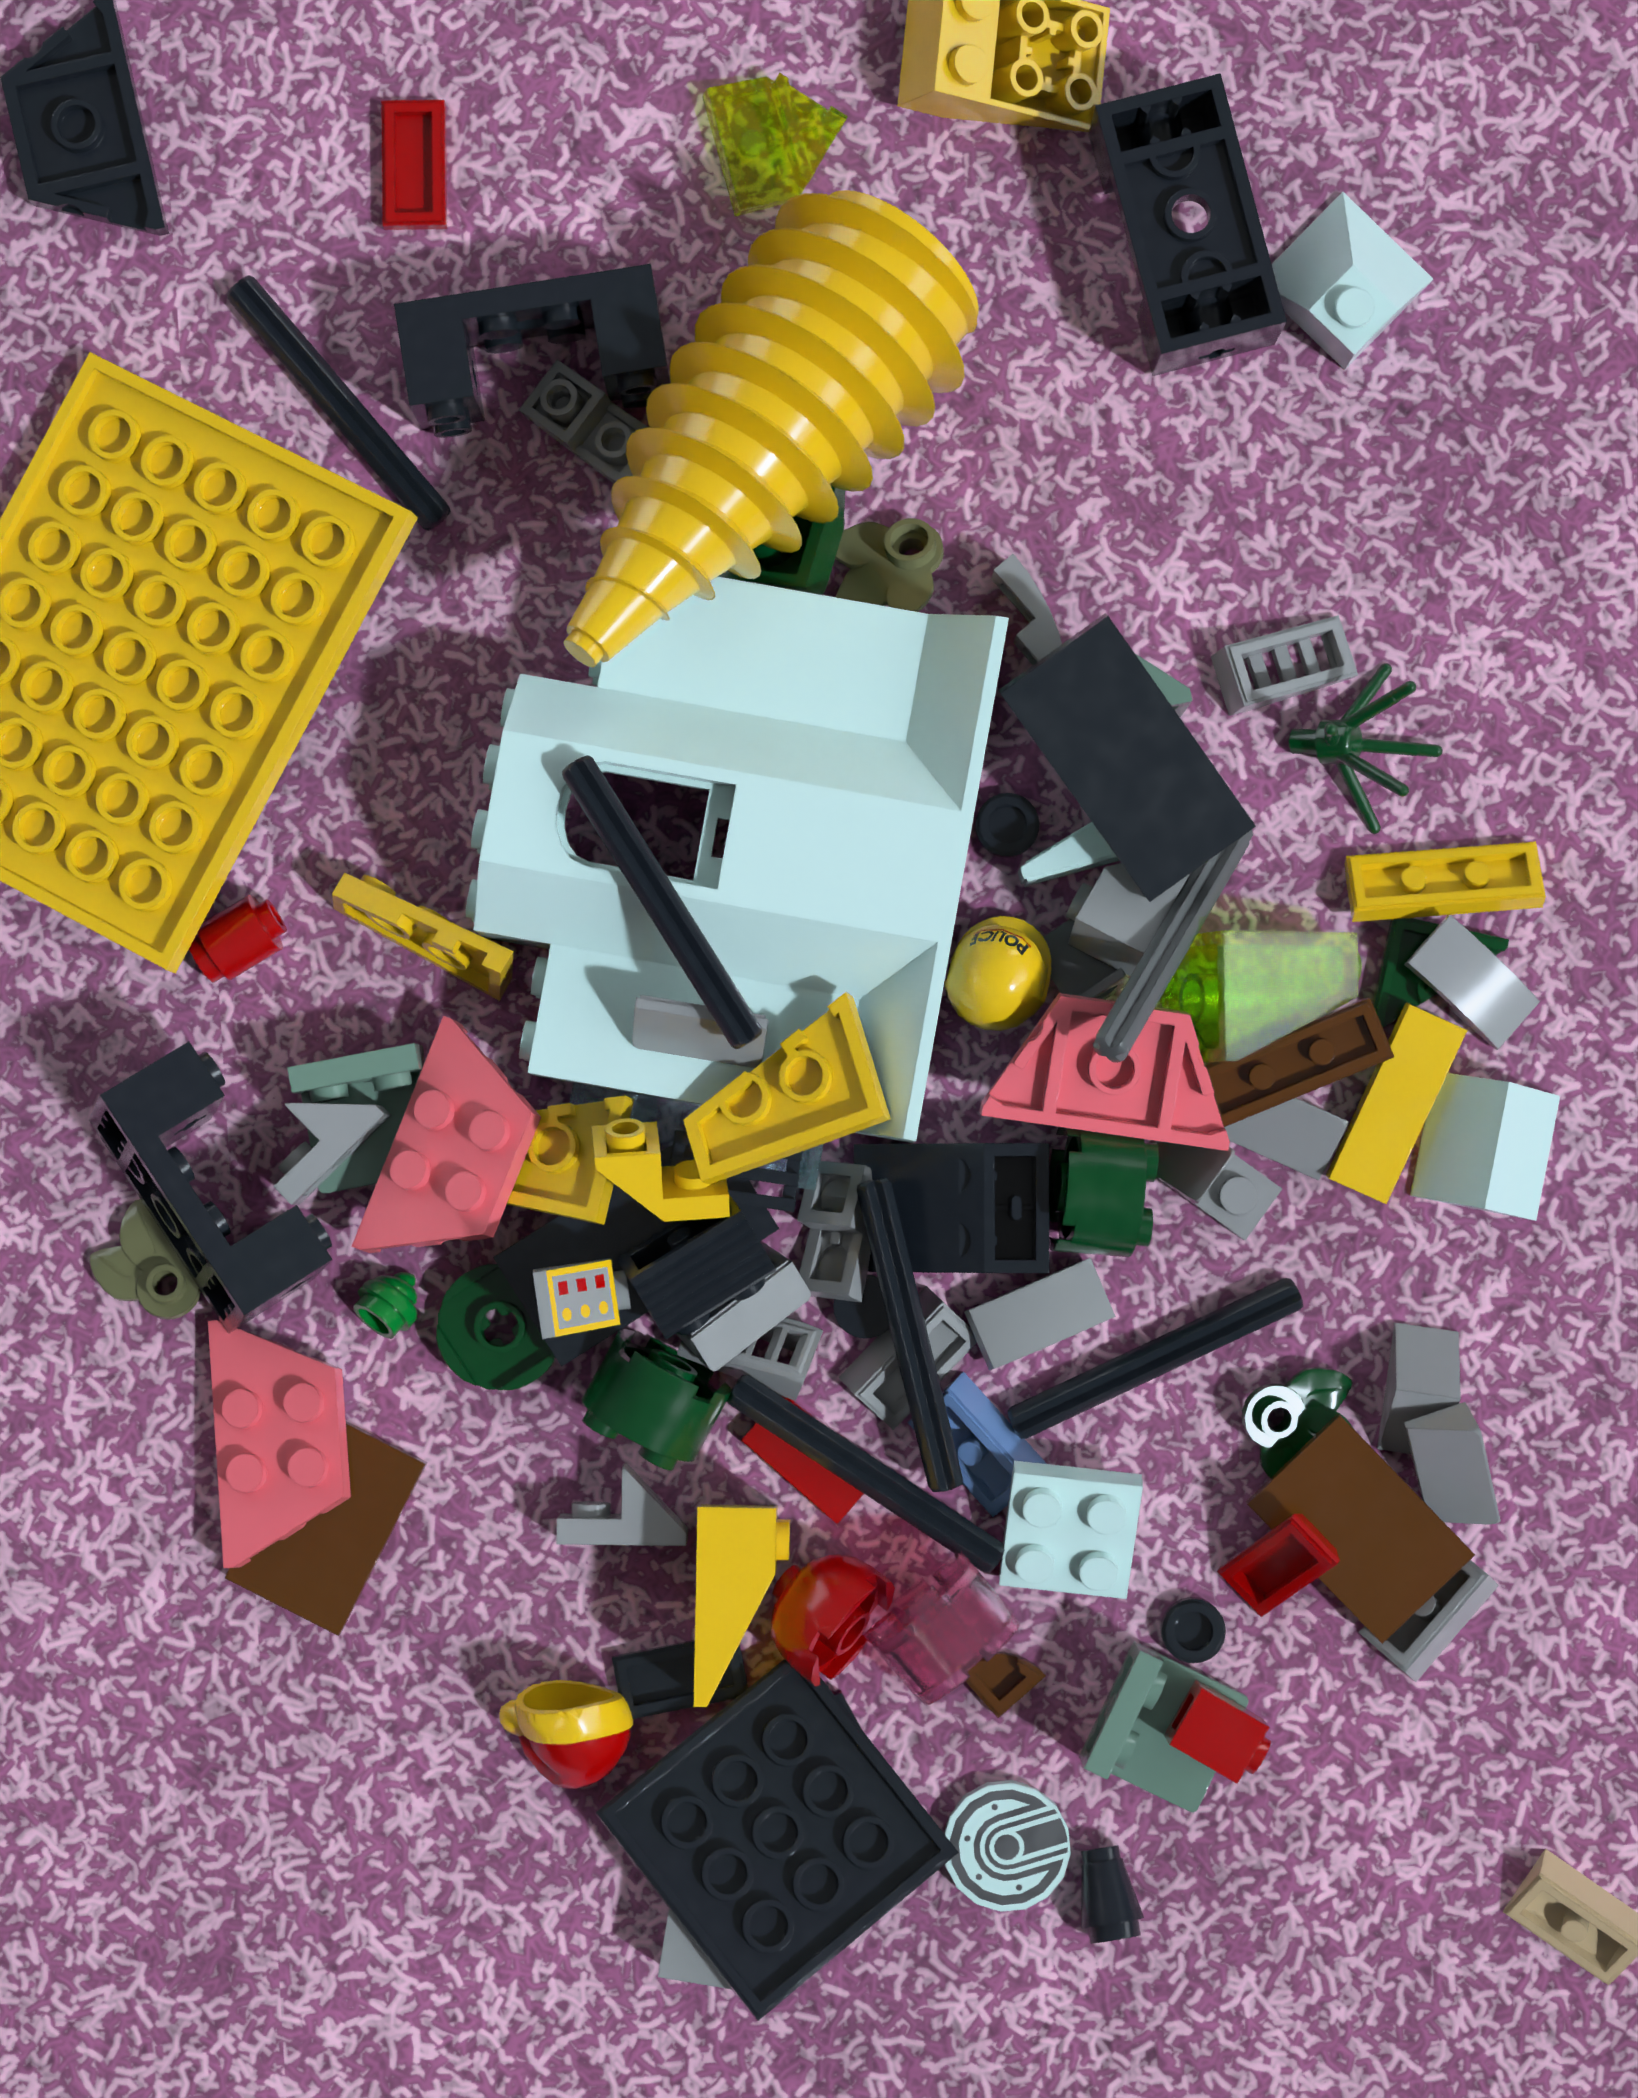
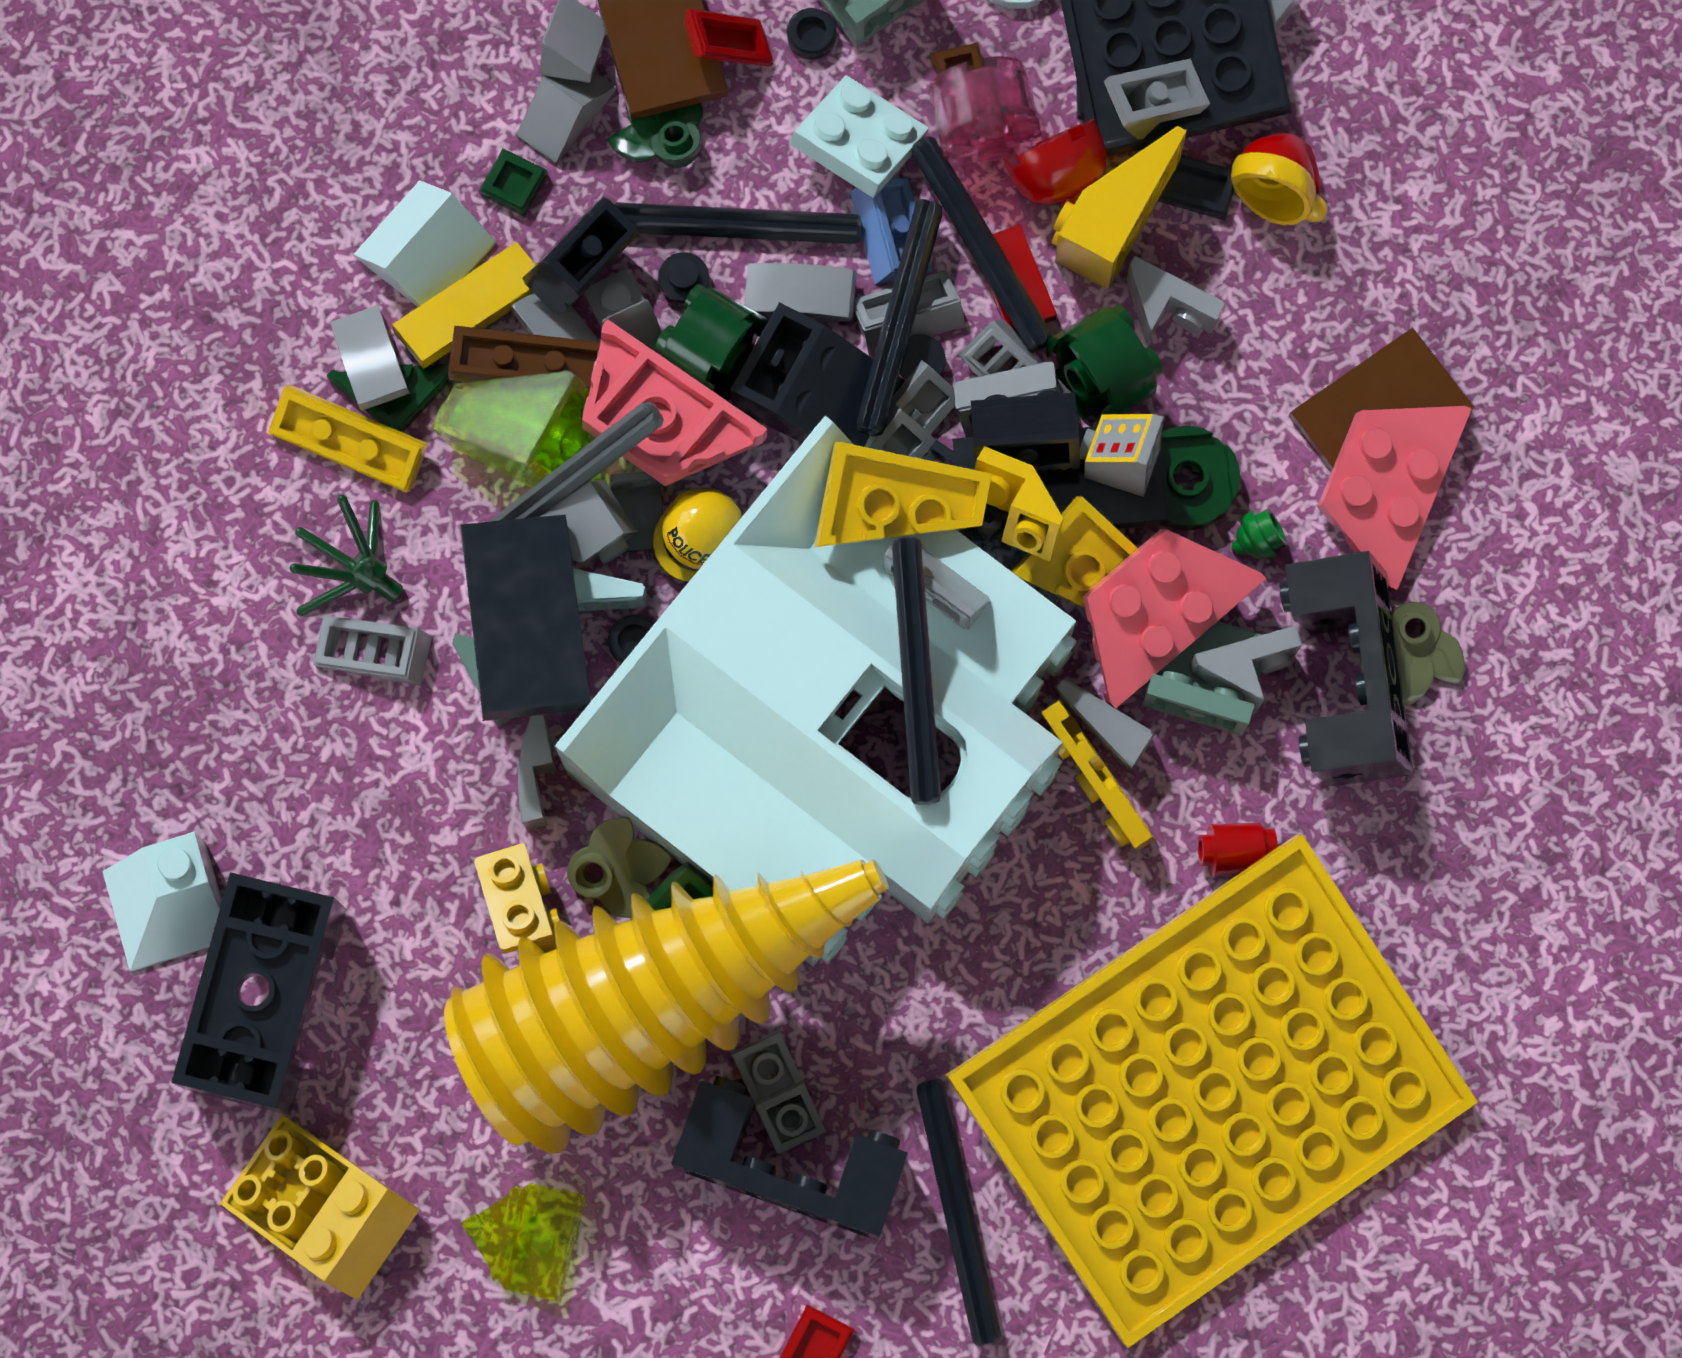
camera: 155 degrees left, 10 degrees down
(429, 996) = (1113, 729): none -> light grey slope
(753, 1741) = (1156, 96): none -> light grey slope
(969, 463) = (515, 898): none -> yellow bracket
(1178, 1262) = (681, 274): none -> black plate
(1301, 1216) = (580, 255): none -> black brick
(1429, 1274) = (513, 182): none -> dark green tile

